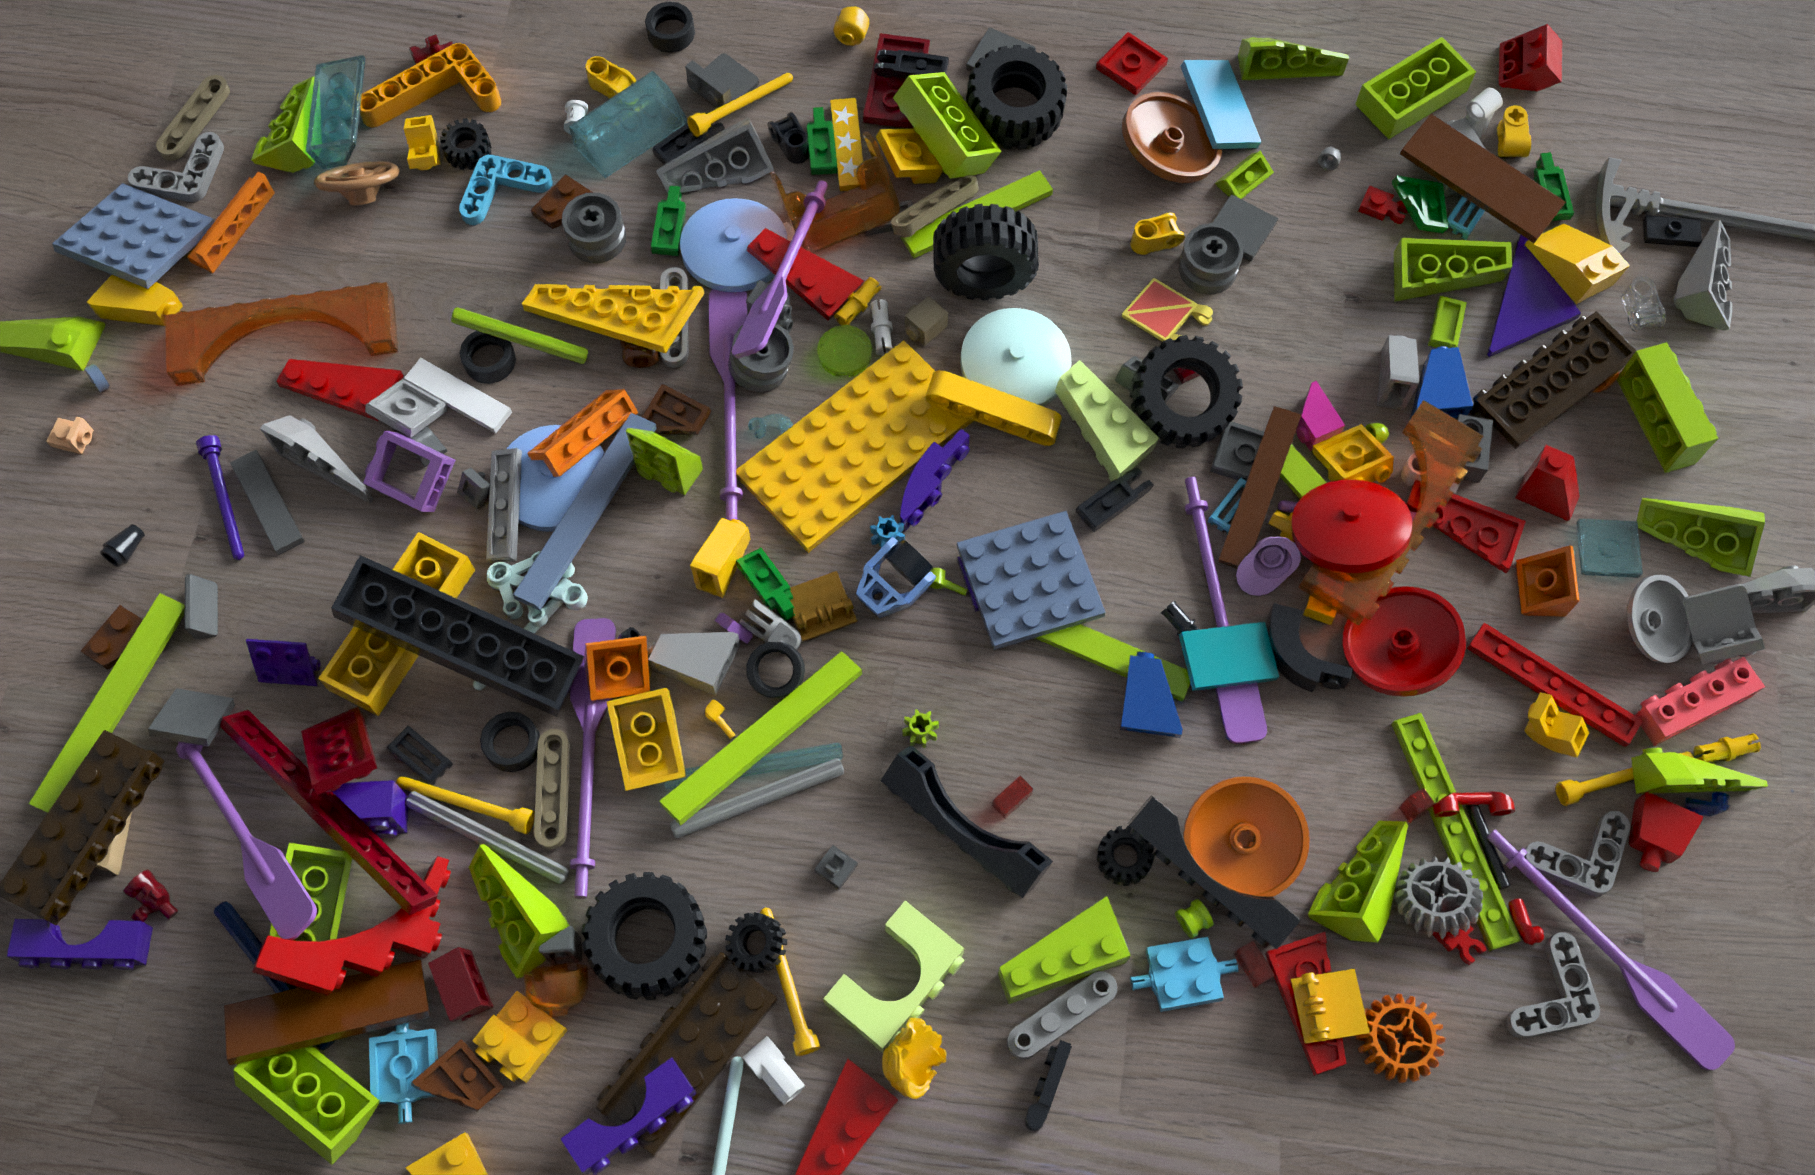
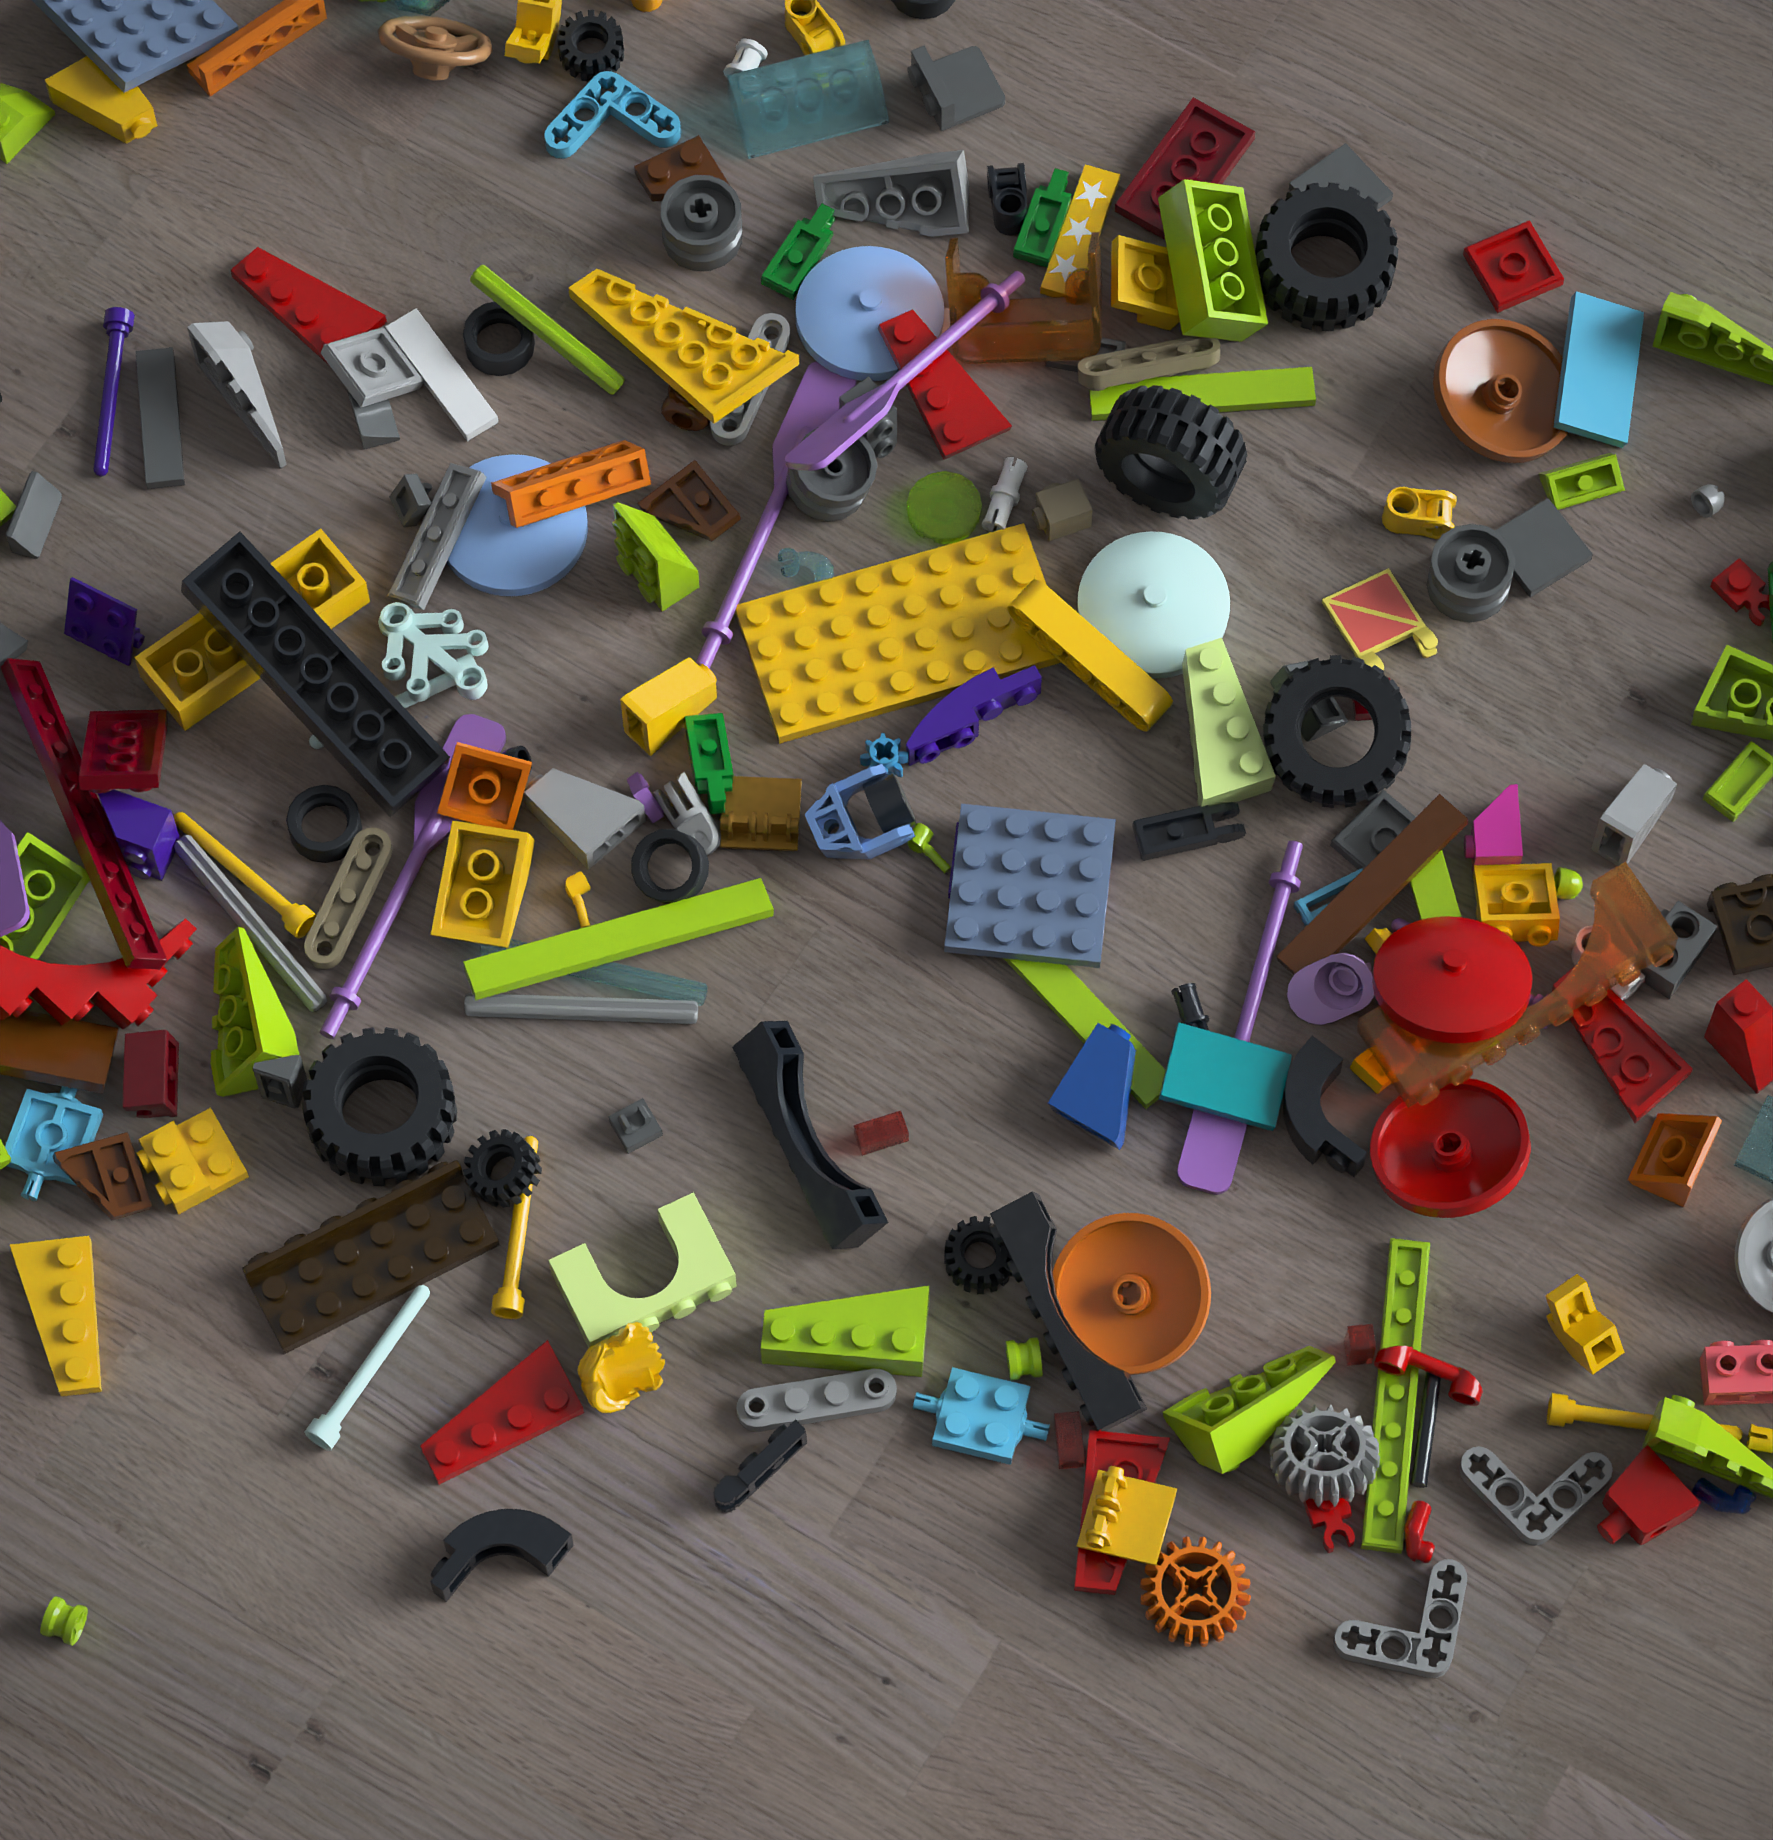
camera: 25 degrees right, 0 degrees up
(97, 378) = (20, 181): sand blue tile -> none
(203, 335) = (167, 175): clear orange arch -> none
(433, 480) = (365, 472): medium lavender window -> none
(438, 771) = (226, 823): black tile -> none
(556, 987) = (255, 1122): clear orange cylinder -> none
(580, 517) = (522, 587): sand blue tile -> none
(595, 1144) = (227, 1306): dark purple arch -> none
(683, 141) = (876, 146): black hinge -> none
(701, 122) = (898, 134): yellow piece -> none
(769, 1065) = (456, 1309): white piece -> none
(851, 26) = (1160, 72): yellow head -> none
(858, 301) = (990, 450): yellow pin -> none
(906, 63) = (1209, 159): black hinge -> none
(914, 733) = (799, 1005): lime gear -> none
(1444, 383) = (1682, 857): blue slope -> none
(1546, 678) = (1615, 1279): red plate -> none
(1653, 990) = (1530, 1672): medium lavender piece -> none

